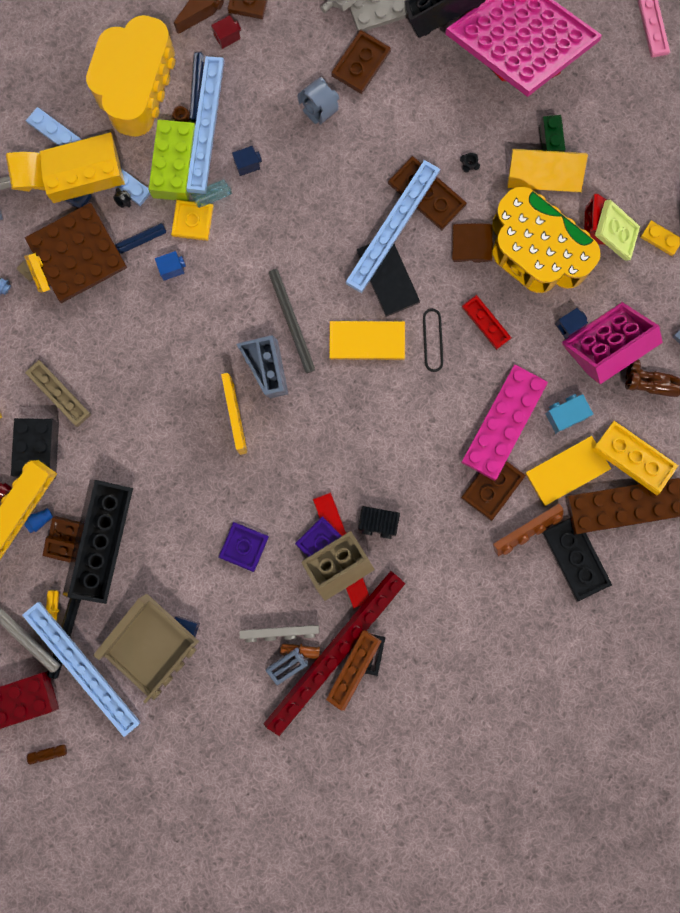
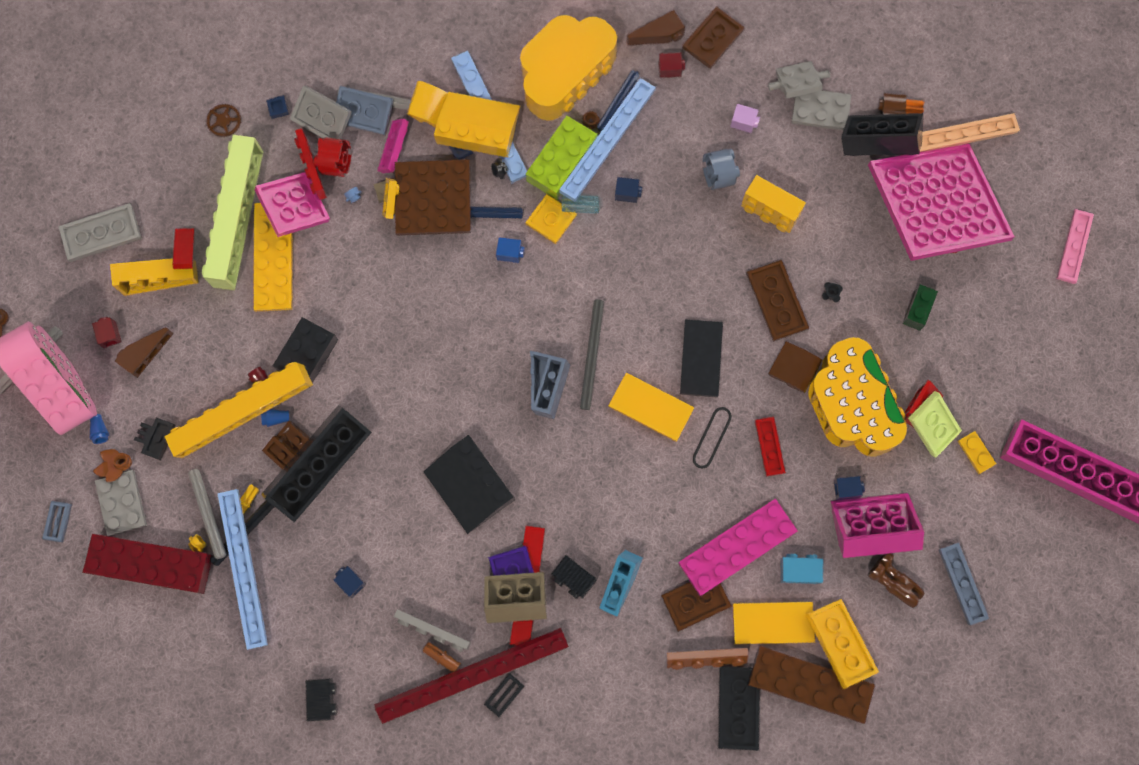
camera: 30 degrees right, 5 degrees down
(15, 225) = (393, 146): none -> dark pink plate
(28, 668) = (197, 543): none -> yellow plate
(46, 754) = (172, 628): reddish brown axle -> none
(58, 393) = (351, 314): dark tan plate -> none
(148, 646) = (310, 580): dark tan panel -> none
(213, 745) = (320, 700): none -> black brick
(234, 414) = (495, 412): yellow tile -> none
(243, 547) = (441, 536): dark purple tile -> none
(244, 489) = (468, 484): none -> black slope
(299, 657) = (436, 662): sand blue tile -> none
(316, 47) = (745, 118): none -> lavender brick
(353, 670) = (479, 700): dark orange plate -> none
(361, 62) = (779, 151): reddish brown plate -> none
(381, 109) = (772, 204): none -> yellow brick
(392, 226) = (728, 315): light blue plate -> none
(421, 504) = (620, 582): none -> dark azure slope
(547, 170) = (899, 335): yellow tile -> none

